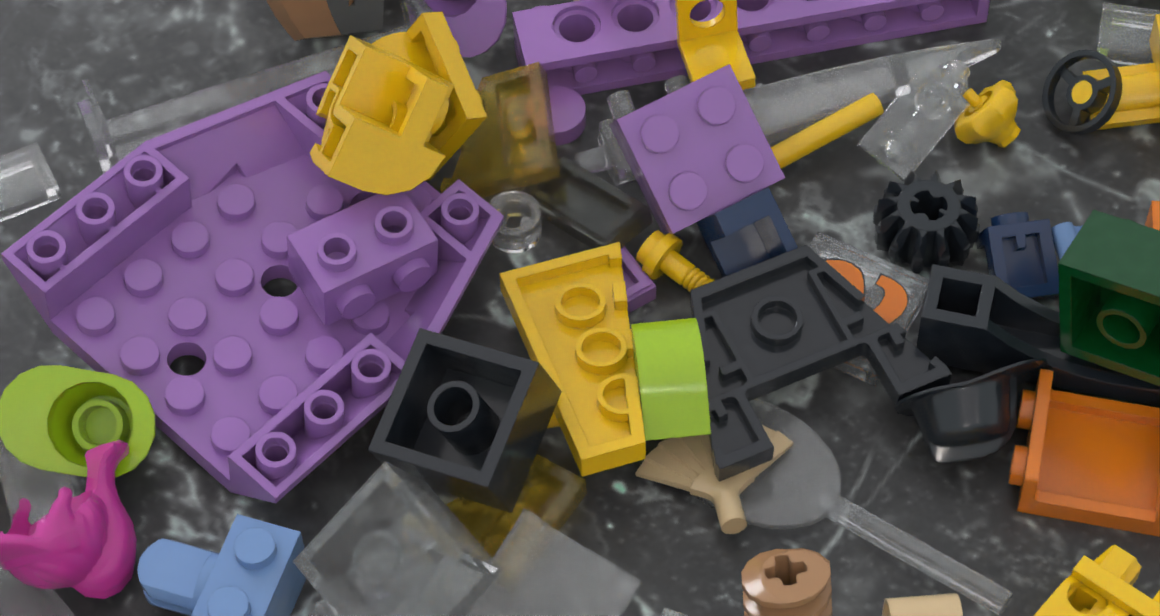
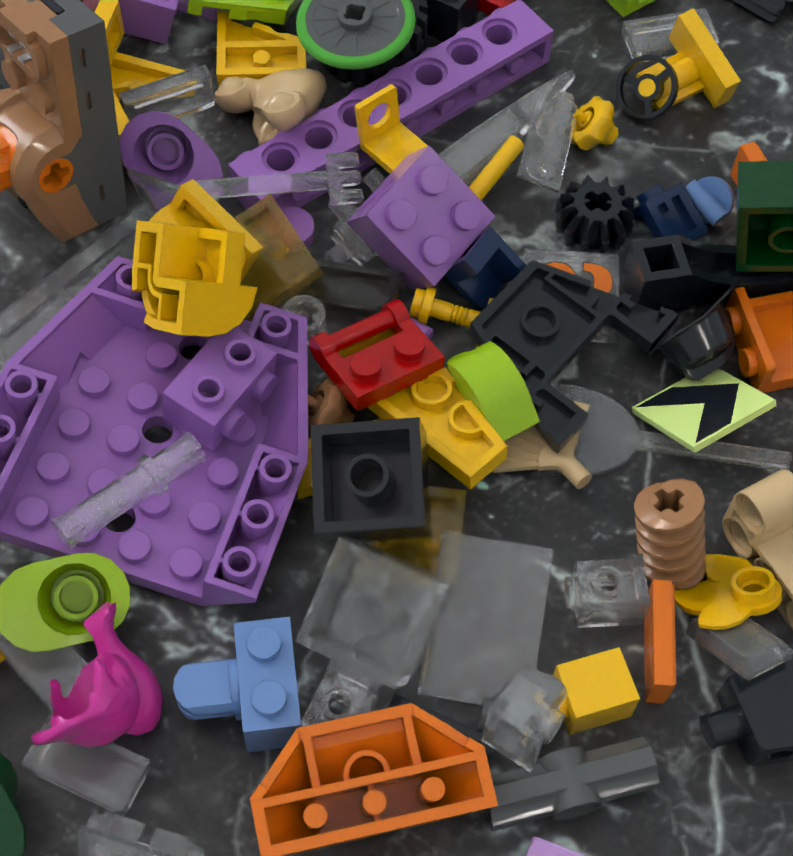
camera: 30 degrees left, 5 degrees up
(204, 329) = (148, 477): none -> clear pin
(483, 323) = (327, 406): none -> medium nougat piece
(558, 301) = (382, 367): none -> red plate
(617, 69) = (331, 179): none -> clear hinge
(926, 497) = (703, 409): none -> yellowish green piece

